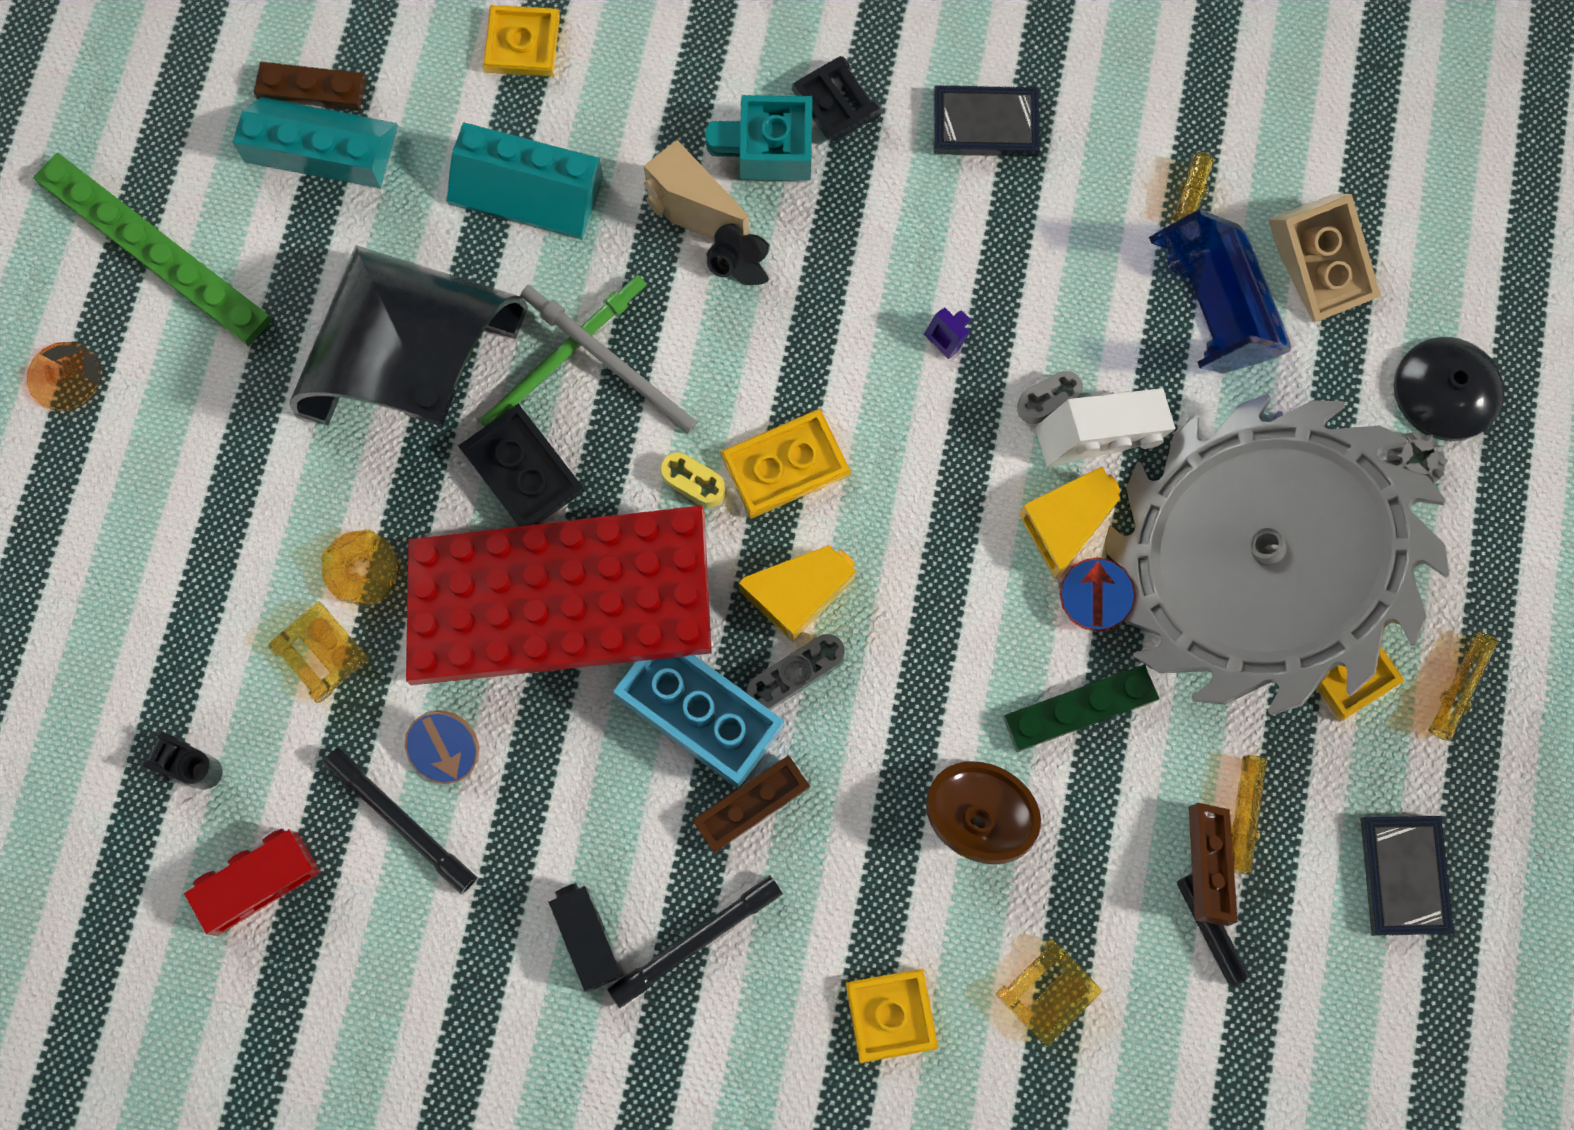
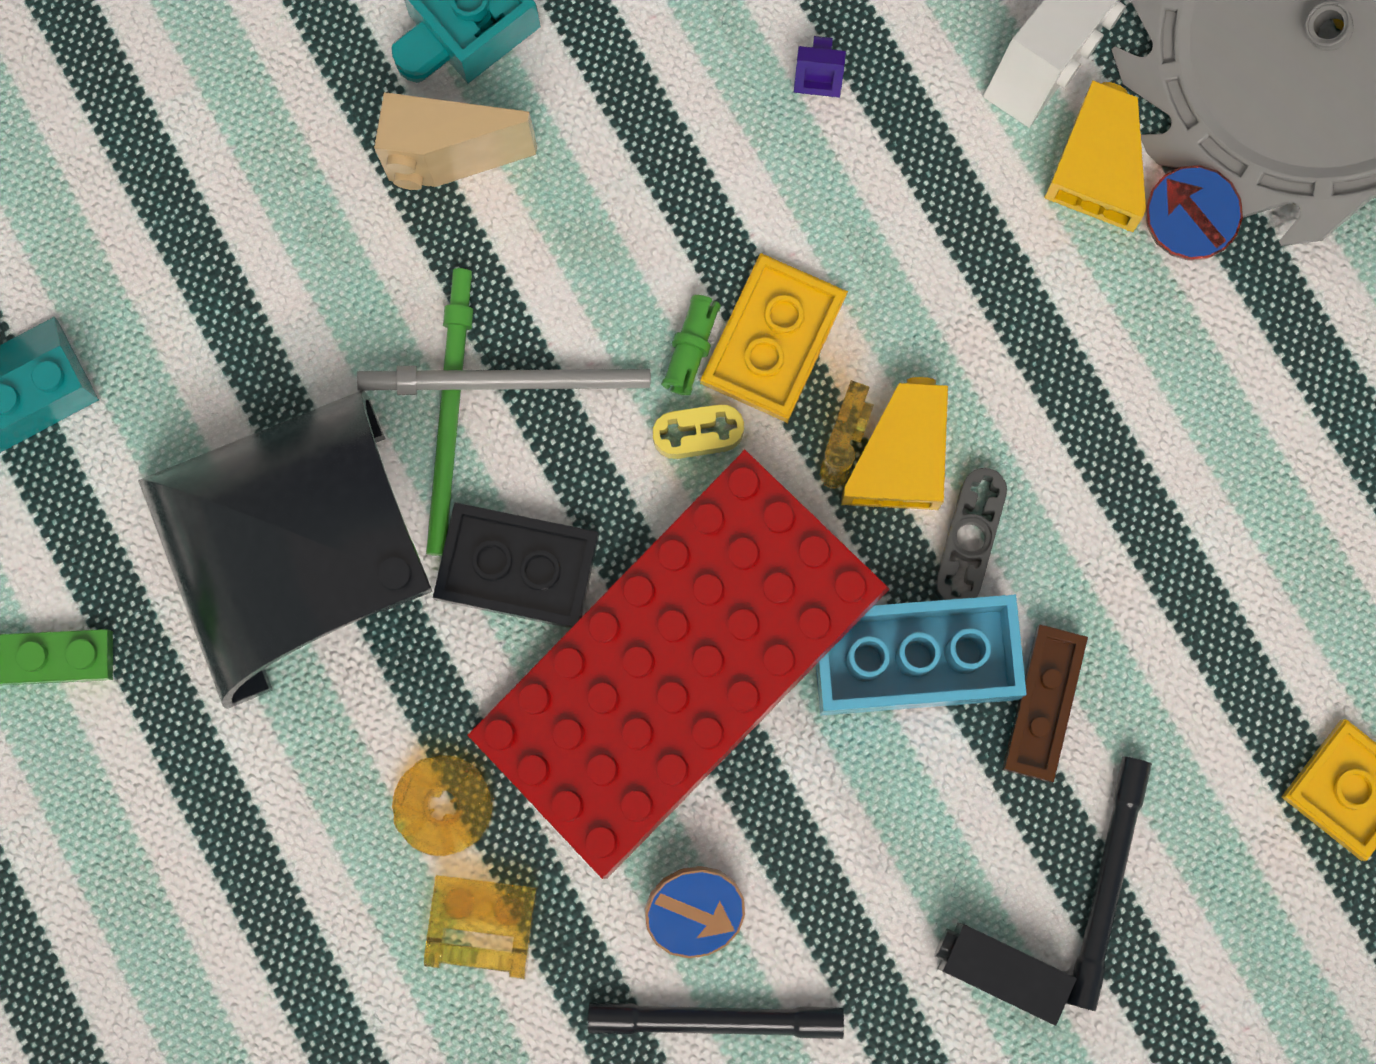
camera: 35 degrees left, 5 degrees up
(521, 40) = (106, 122): yellow tile -> none
(523, 180) = (247, 268): teal slope -> none
(732, 427) = (691, 345): none -> bright green pin
(738, 255) = (542, 164): black plate -> none
(774, 544) = (849, 426): none -> clear yellow plate
(991, 800) = (1278, 501): reddish brown dish -> none
(1045, 390) = (965, 51): light grey beam -> none
(1080, 708) = (1270, 339): dark green plate -> none

